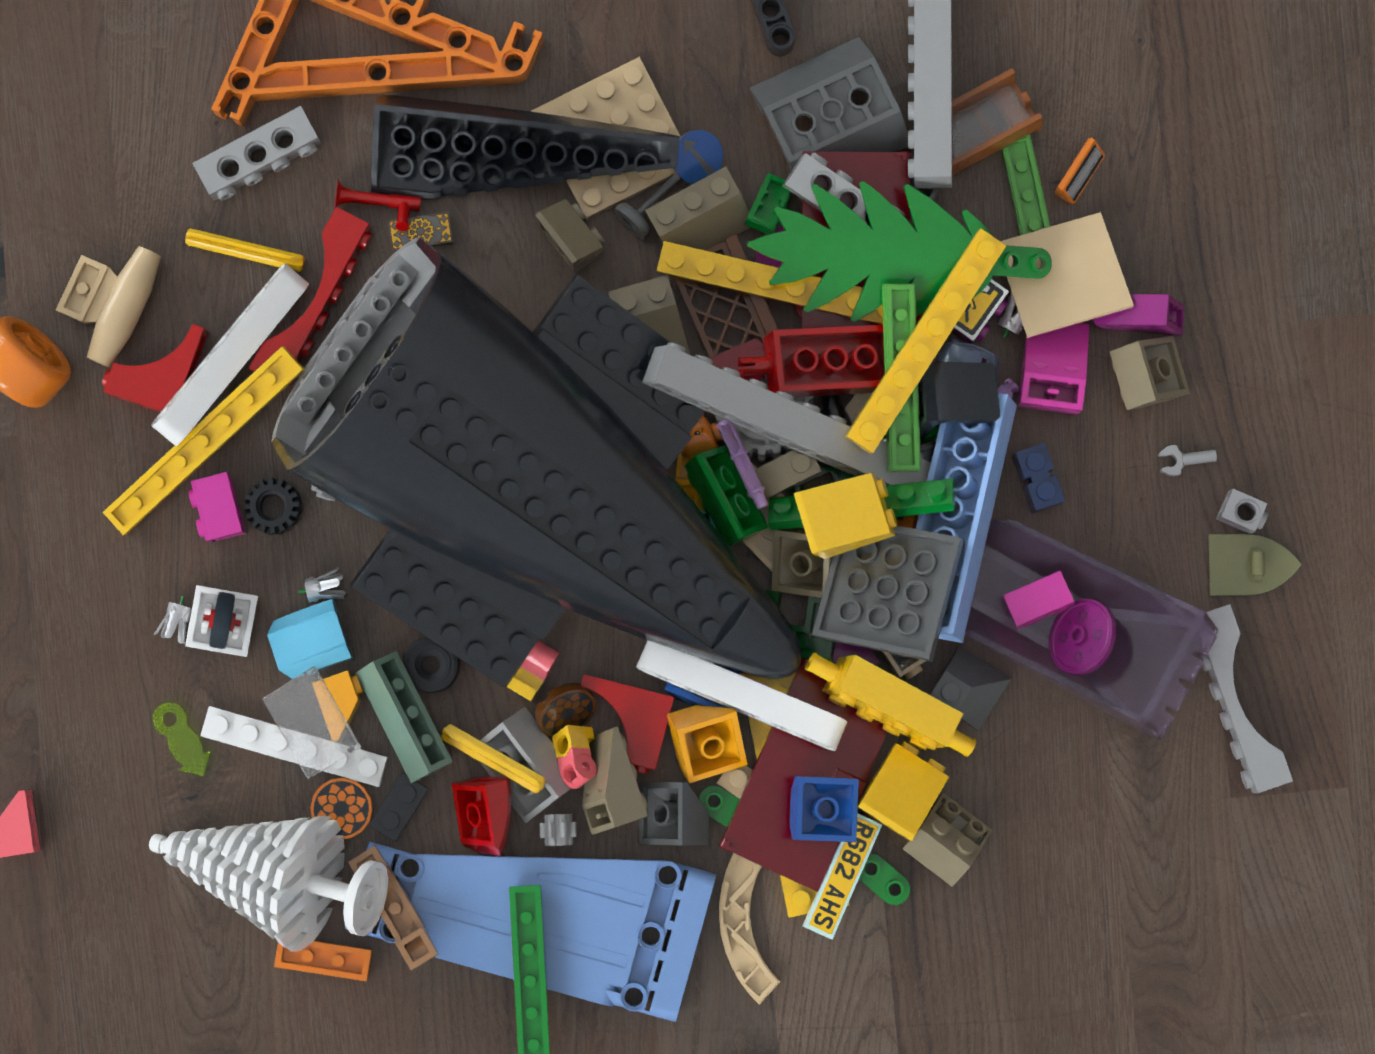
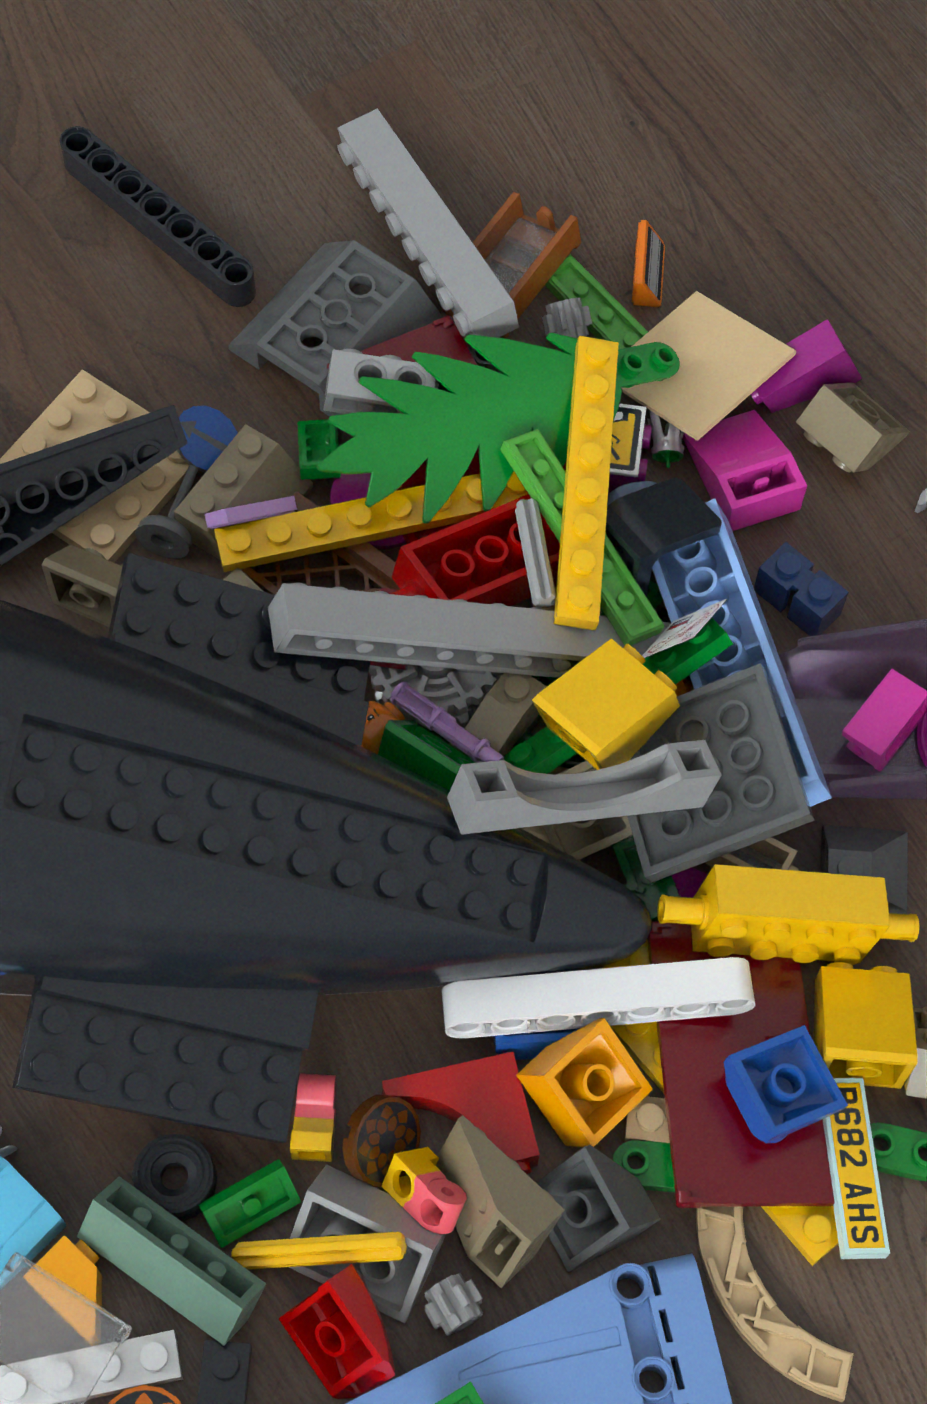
camera: 30 degrees left, 20 degrees down
(468, 705) = (250, 1203): none -> green plate
(695, 238) = (250, 512): none -> lavender tile
(747, 561) = (507, 797): none -> light grey arch
(862, 376) = (535, 553): none -> light grey axle
(927, 484) = (683, 629): none -> white sticker
(995, 189) = (567, 318): none -> light grey gear

